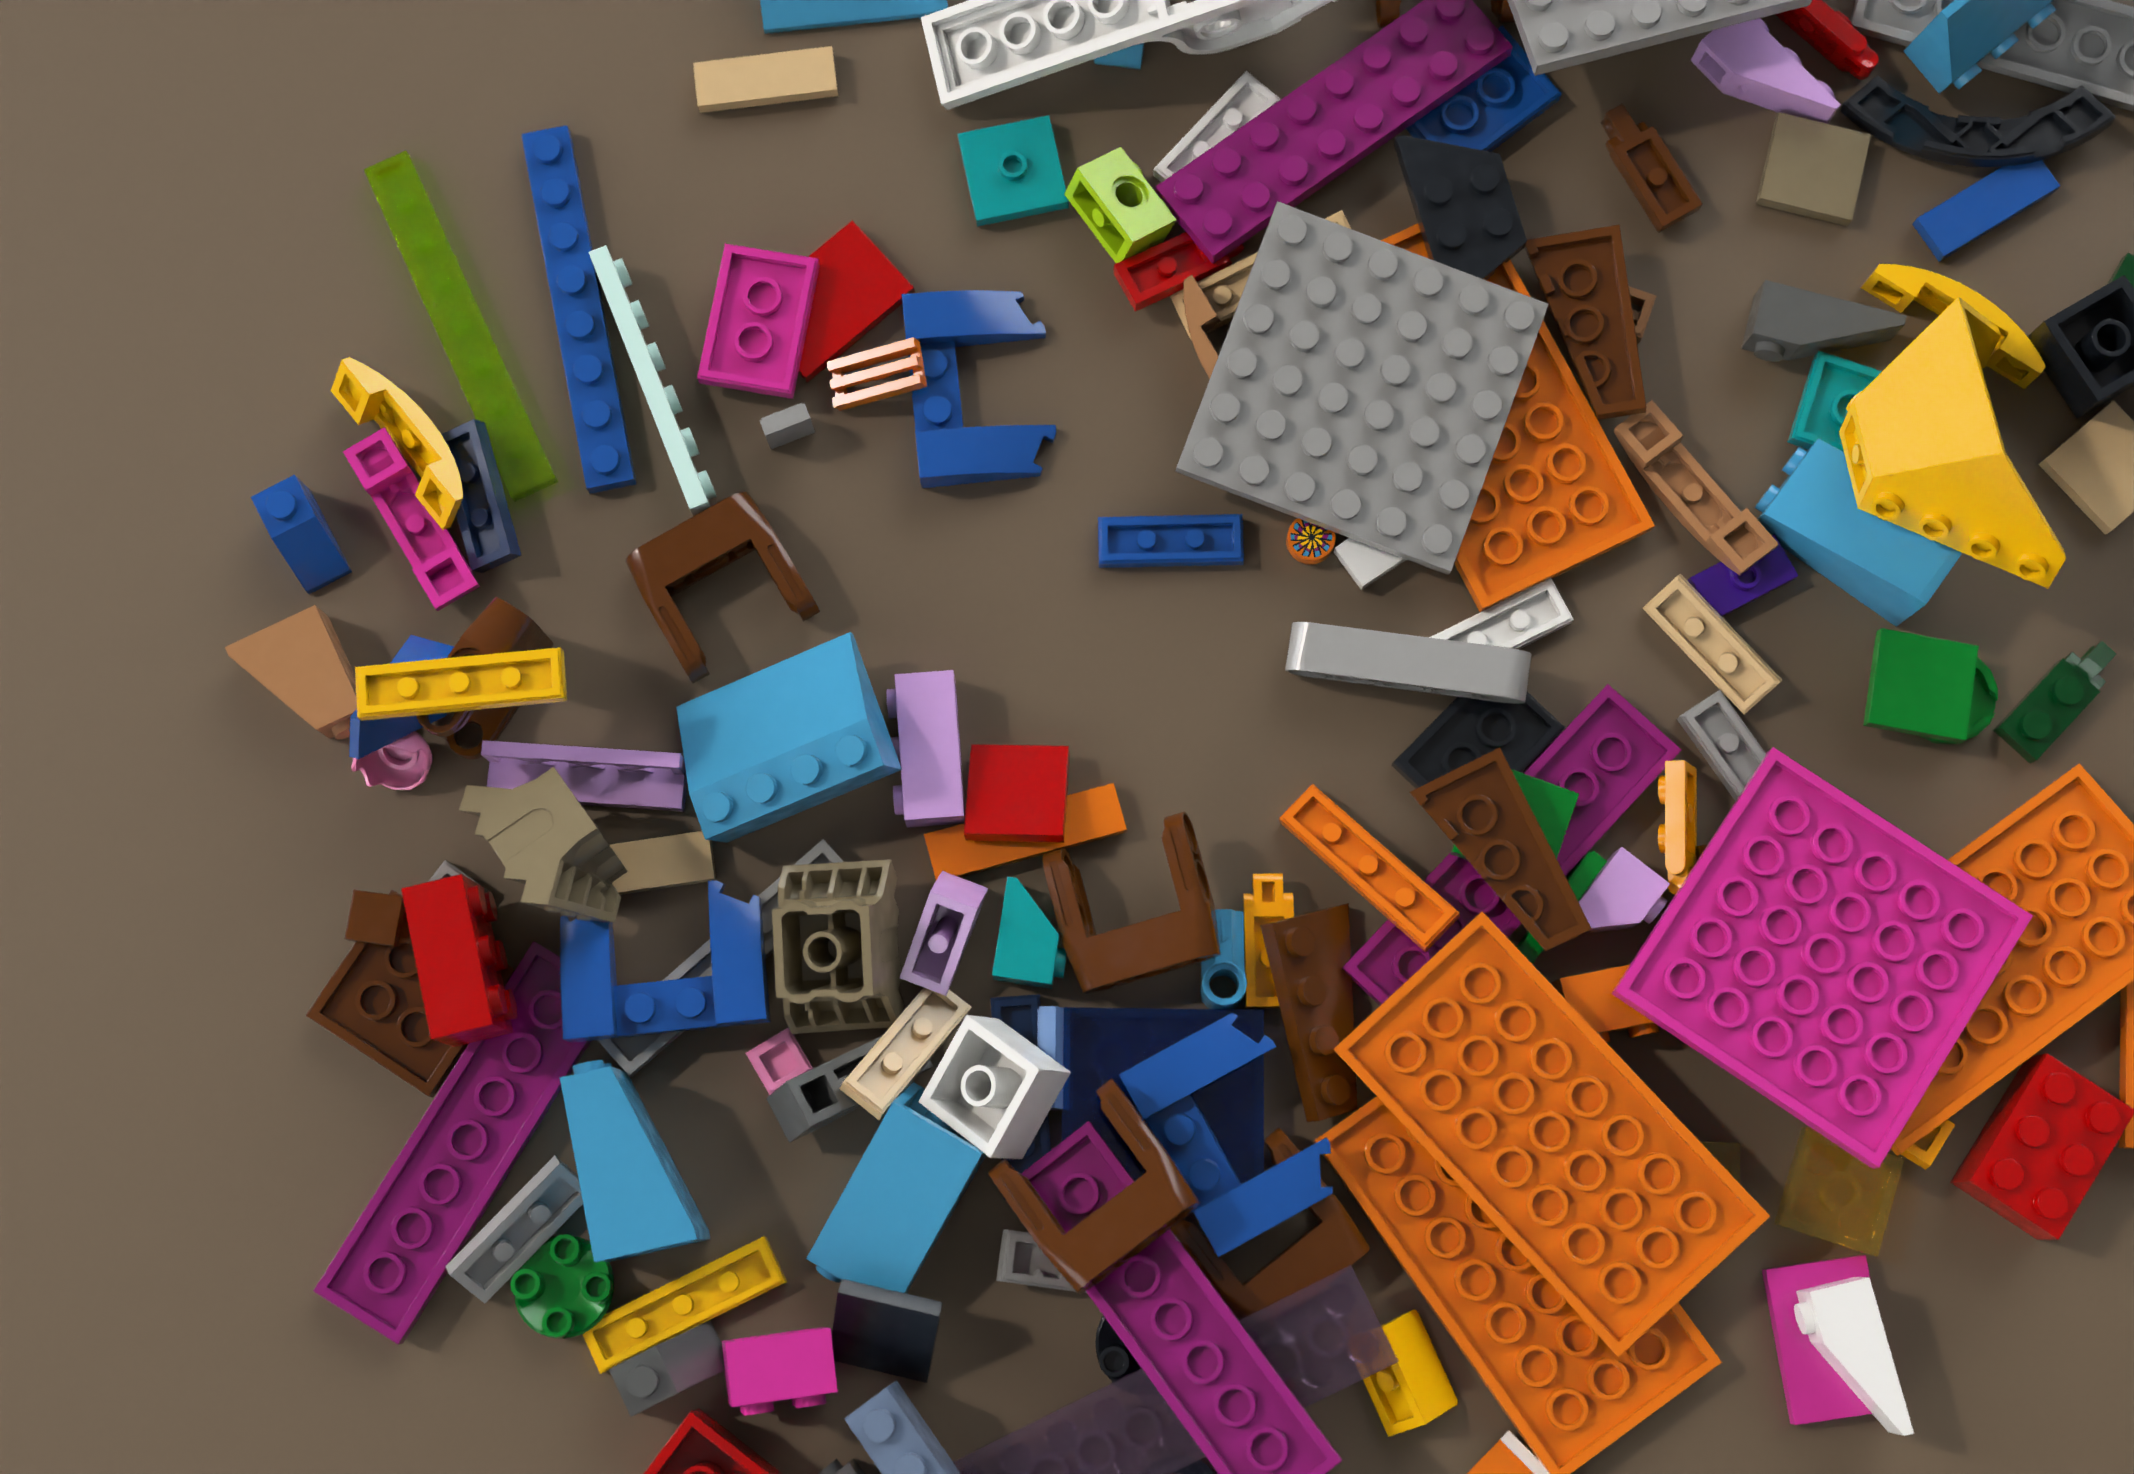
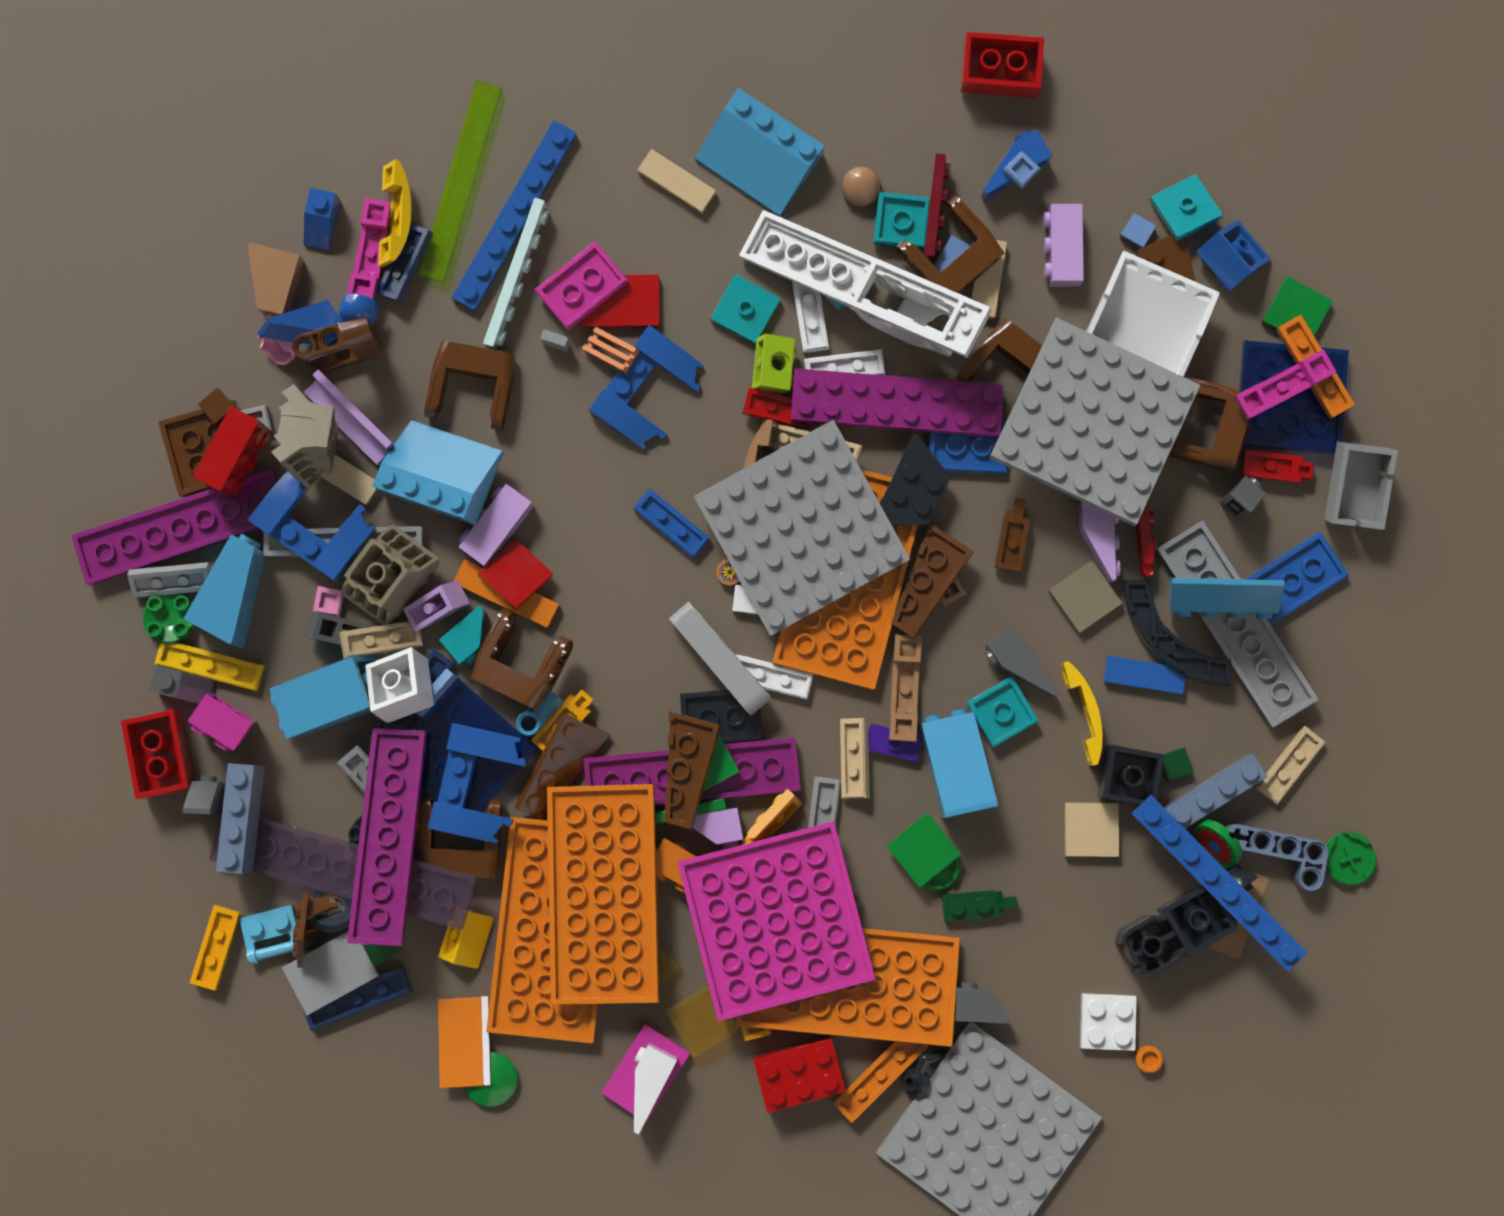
camera: 40 degrees right, 5 degrees up
(460, 684) = (320, 343): yellow tile -> none
(461, 605) = (358, 307): none -> blue hair
(885, 1330) = (276, 743): black tile -> none
(1110, 109) = (810, 319): none -> white tile
(1120, 1225) = (398, 782): reddish brown connector -> none
(1369, 868) = (629, 727): orange tile -> none
(1933, 456) = (1001, 750): yellow piece -> none

